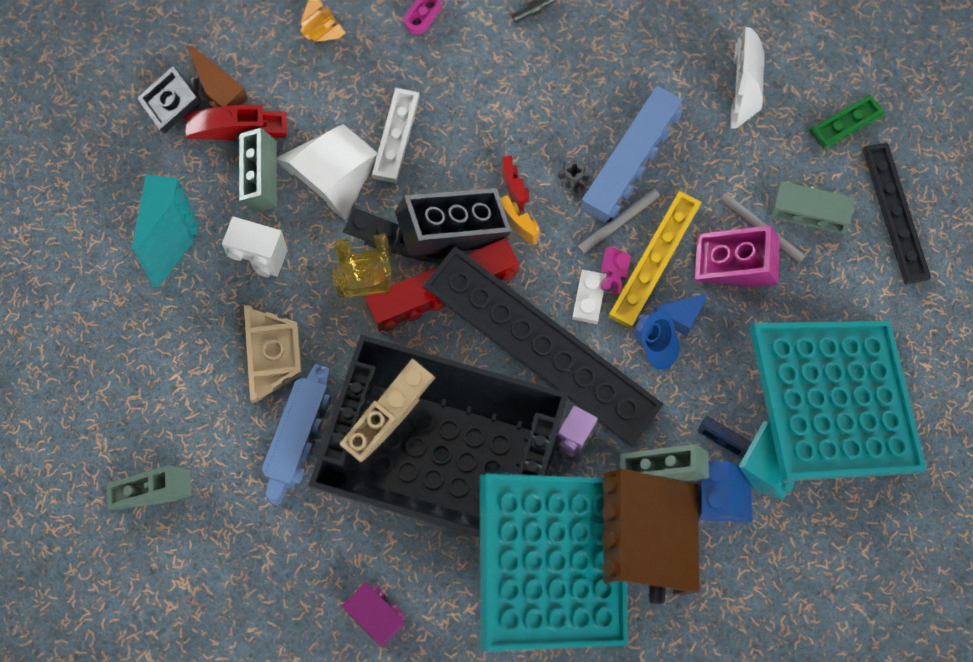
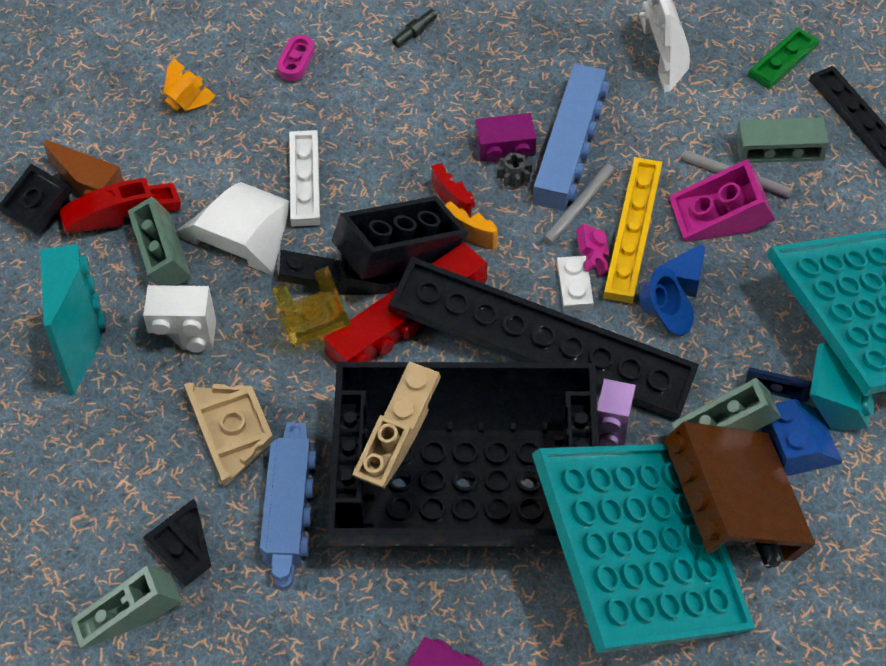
camera: 15 degrees left, 15 degrees down
(205, 445) = (181, 543): none -> black wing
(575, 141) = (505, 135): none -> magenta brick

